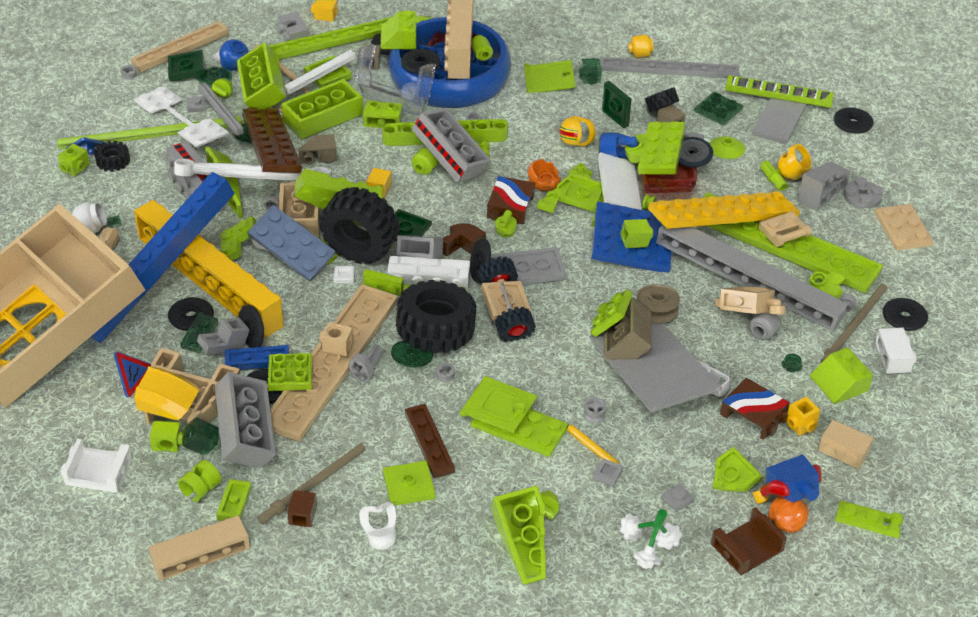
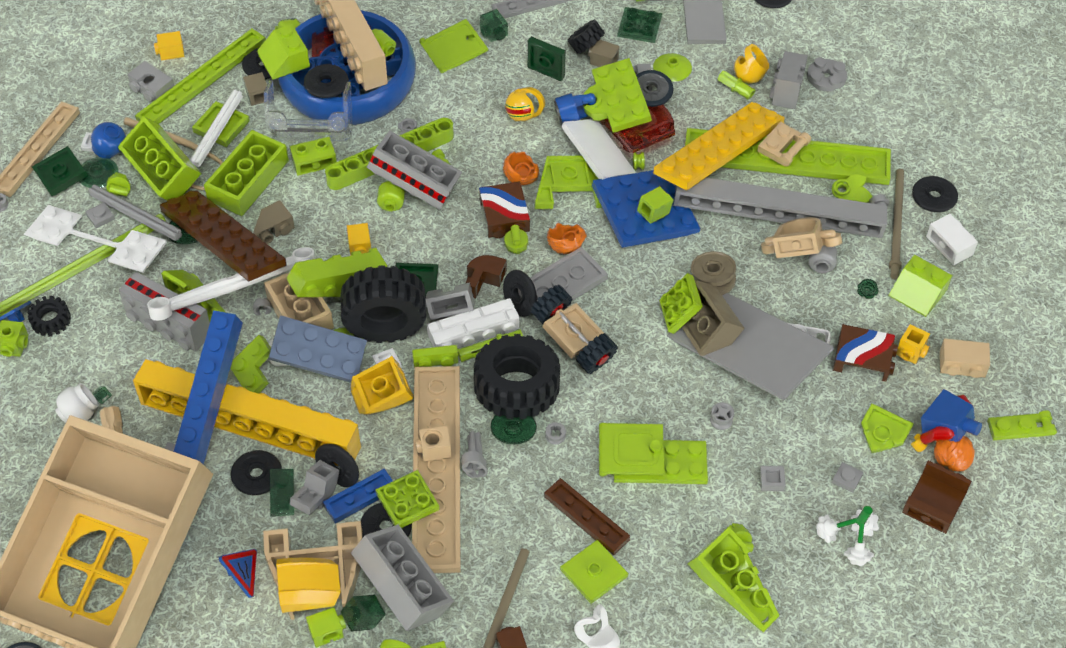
camera: 25 degrees left, 10 degrees up
(326, 288) = (380, 387): none -> yellow slope
(547, 236) = (566, 238): none -> orange hair
(581, 170) = (550, 149): lime plant -> none
(590, 444) = (737, 454): yellow bar -> none
(903, 227) = (882, 98): tan plate -> none

